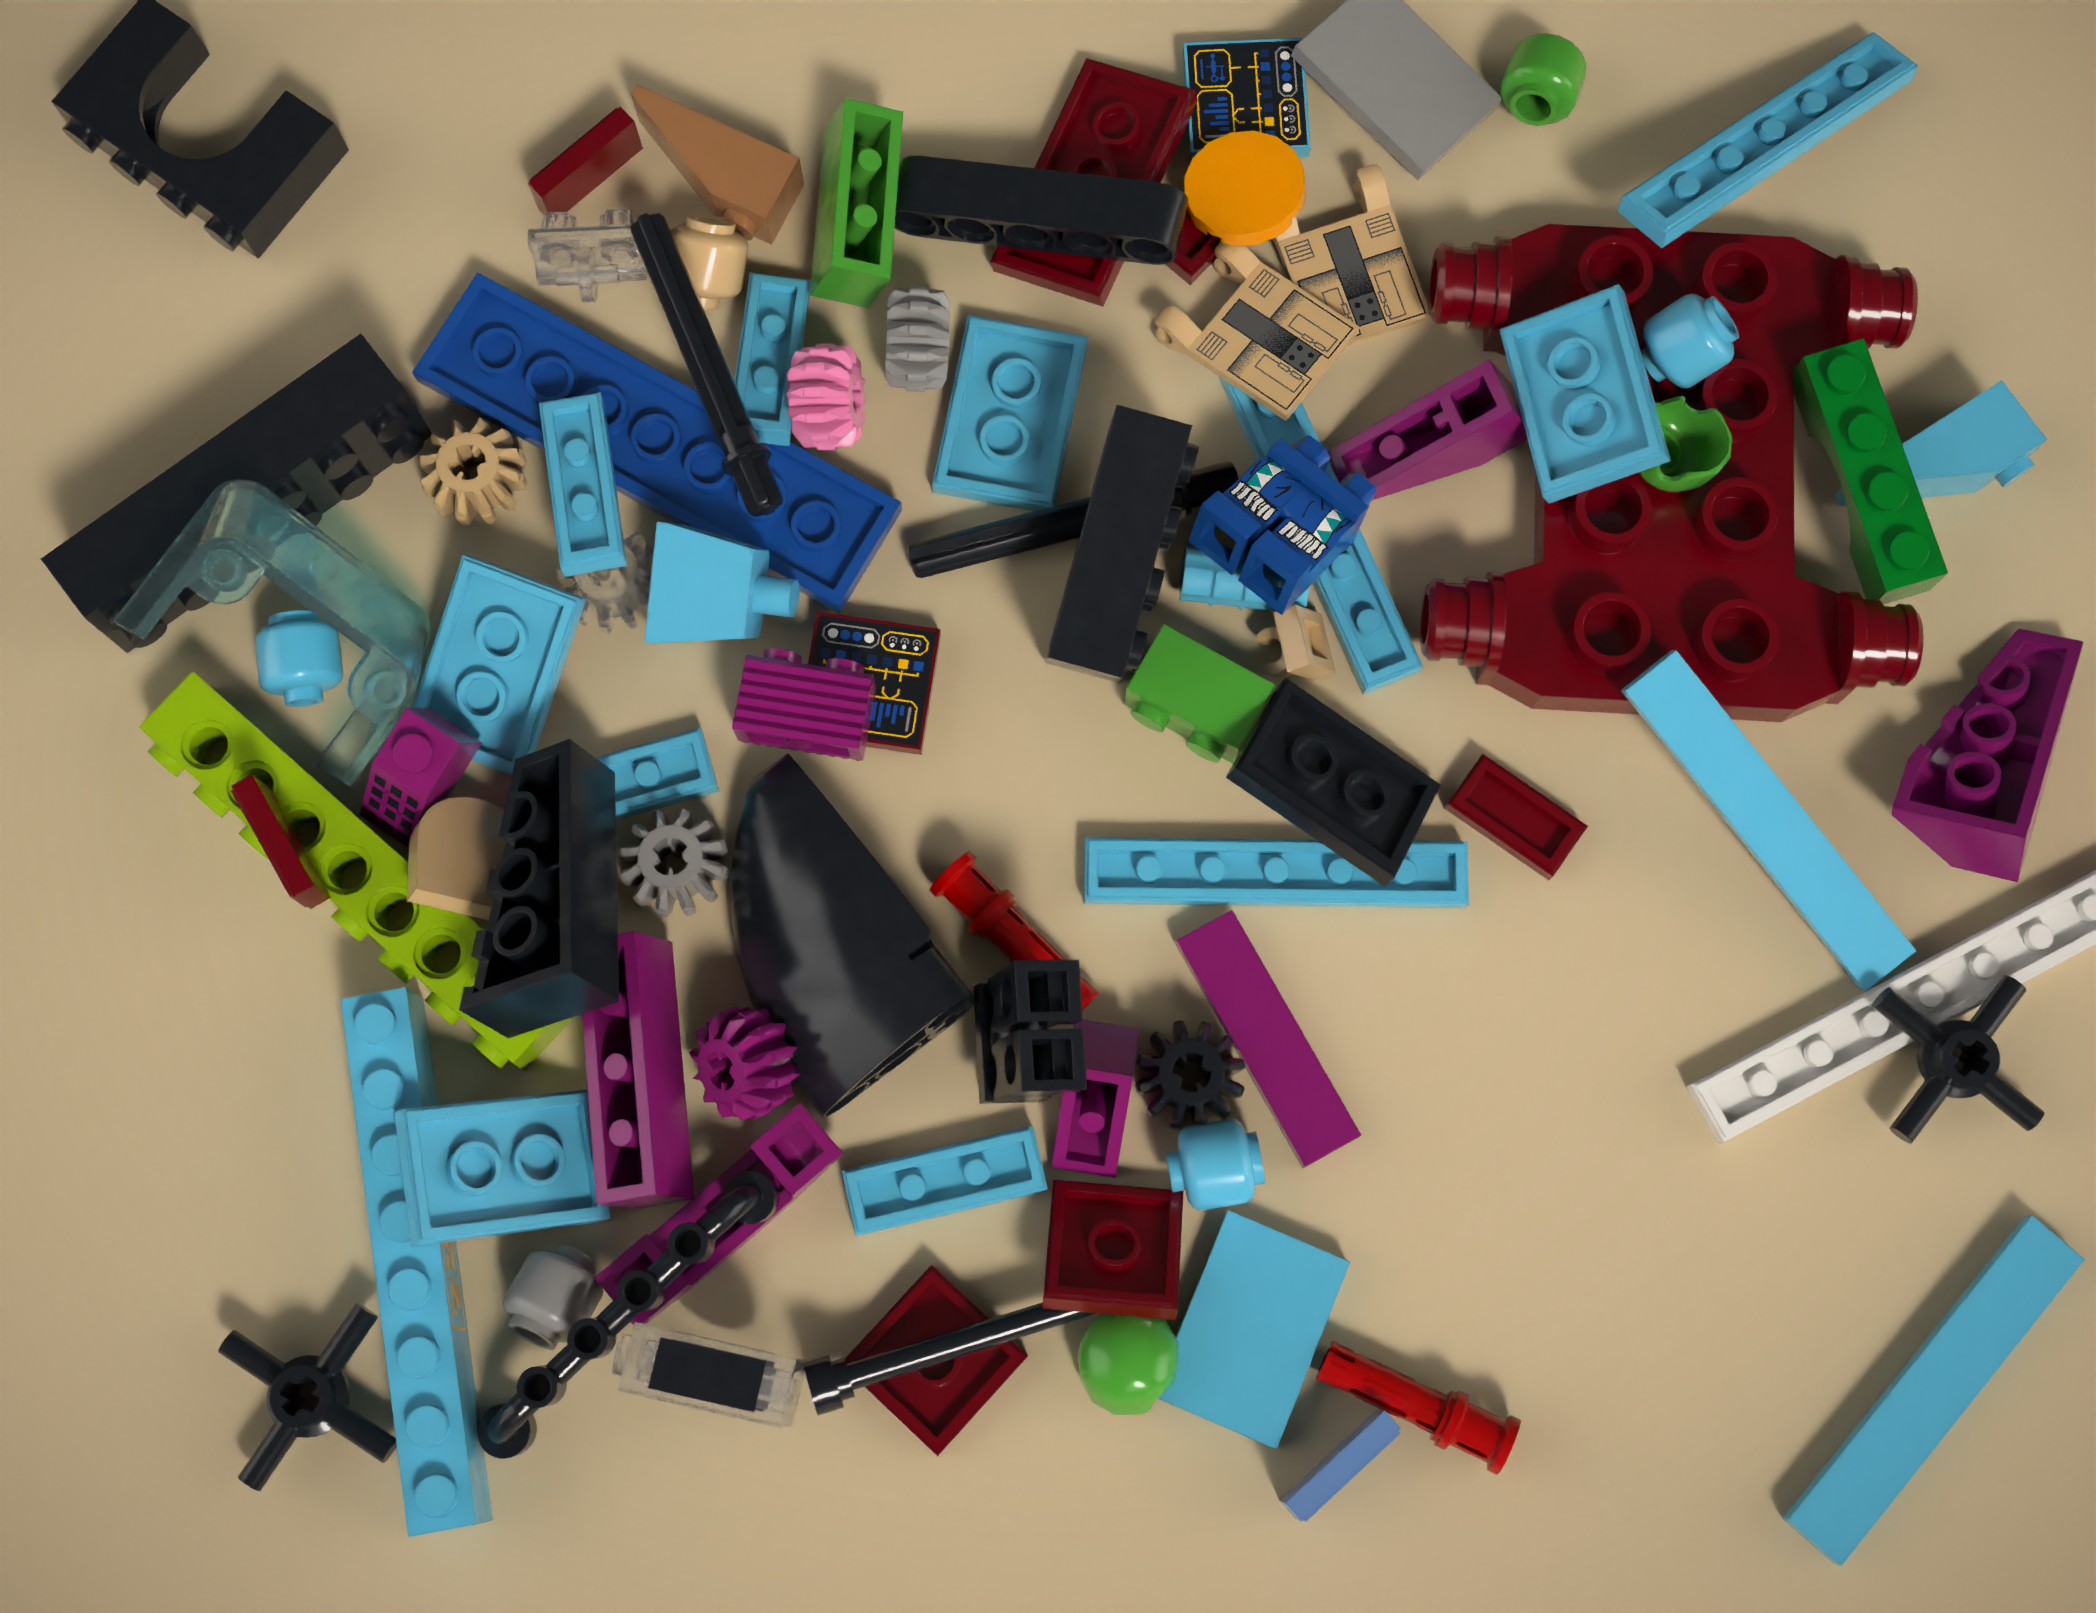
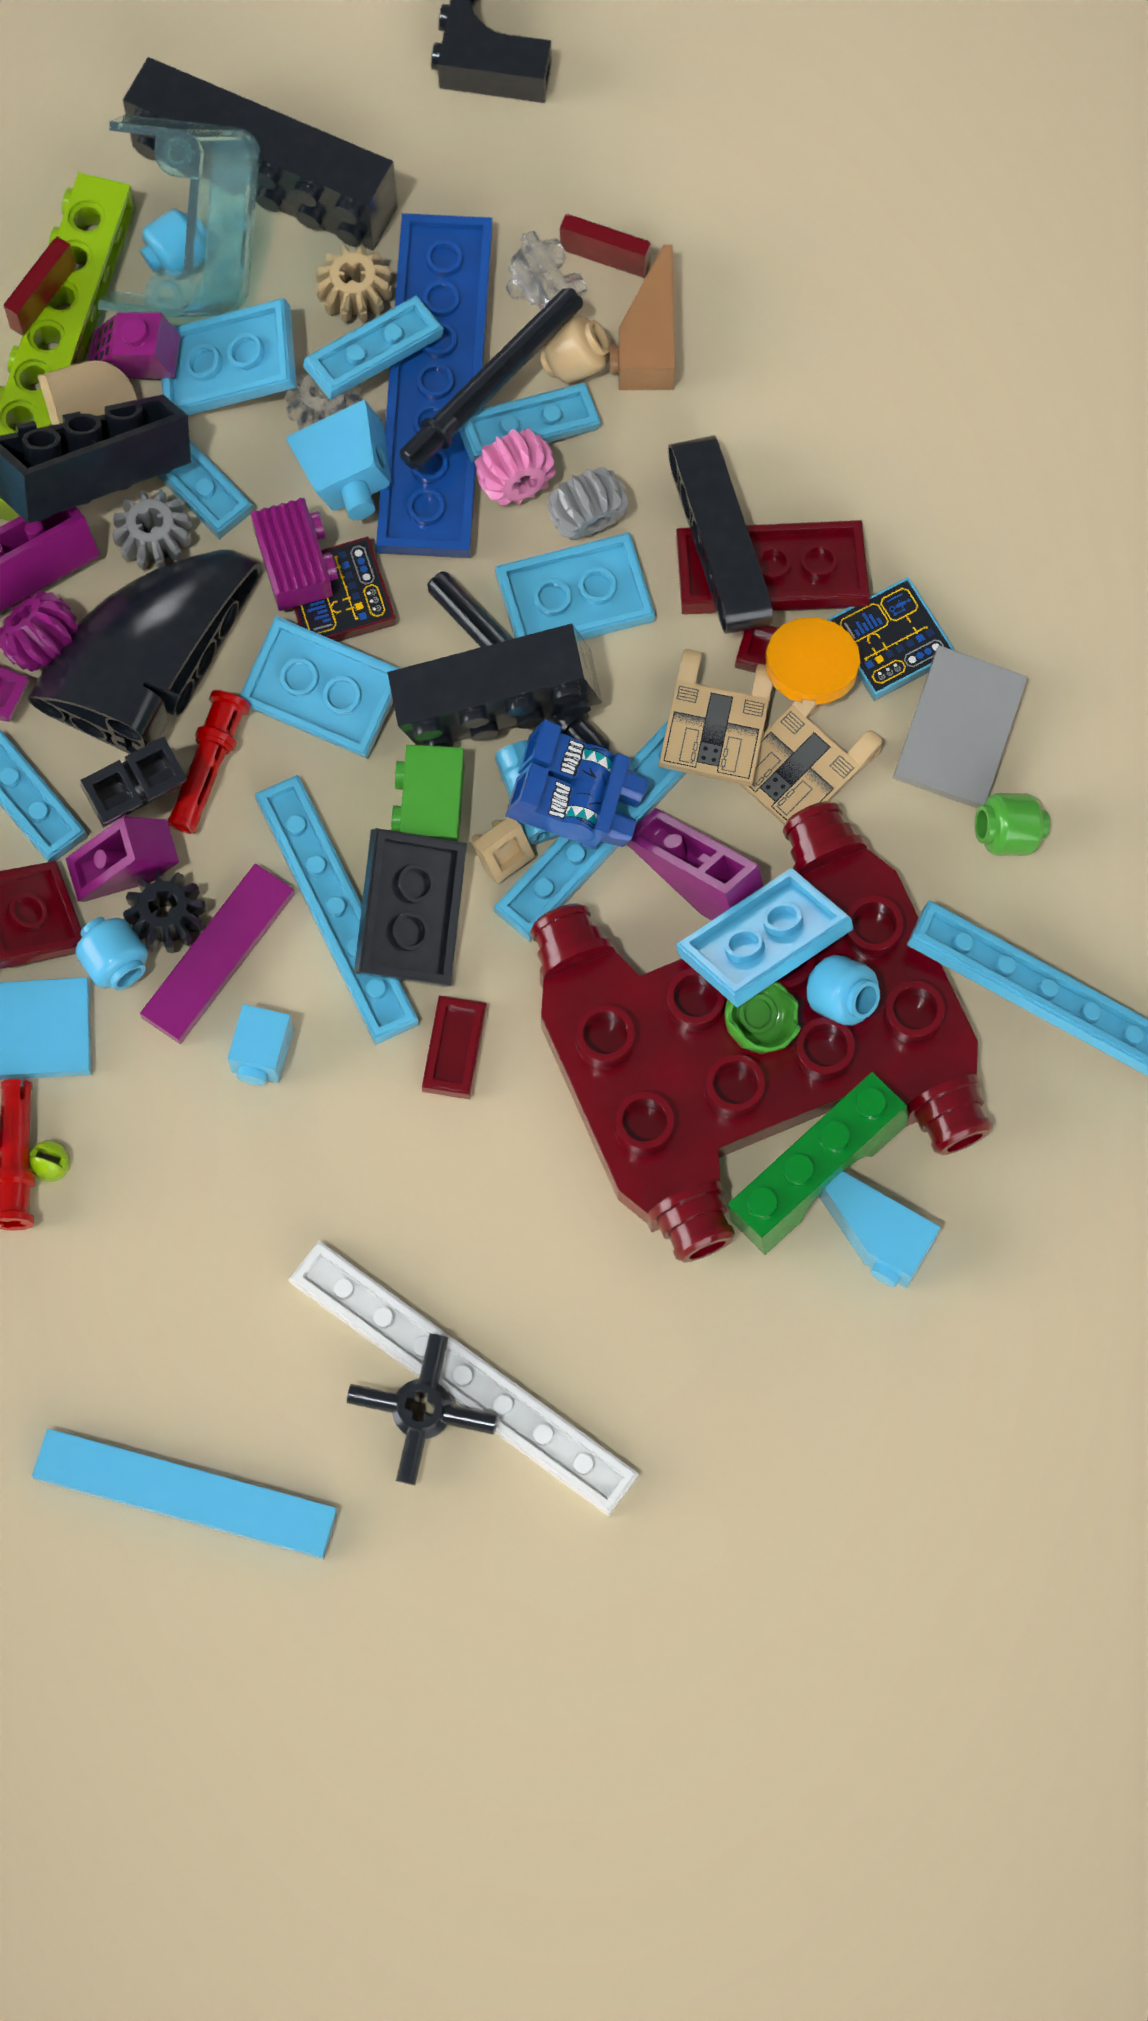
camera: 65 degrees right, 5 degrees down
(857, 203) = (664, 420): bright green brick -> none
(986, 756) = (320, 687): none -> medium azure tile
(1418, 1040) = (260, 1045): none -> medium azure brick
(1429, 1353) = (45, 1169): none -> lime hinge
(1768, 820) = (525, 1202): medium azure tile -> none
(1986, 767) = (645, 1347): magenta wedge -> none

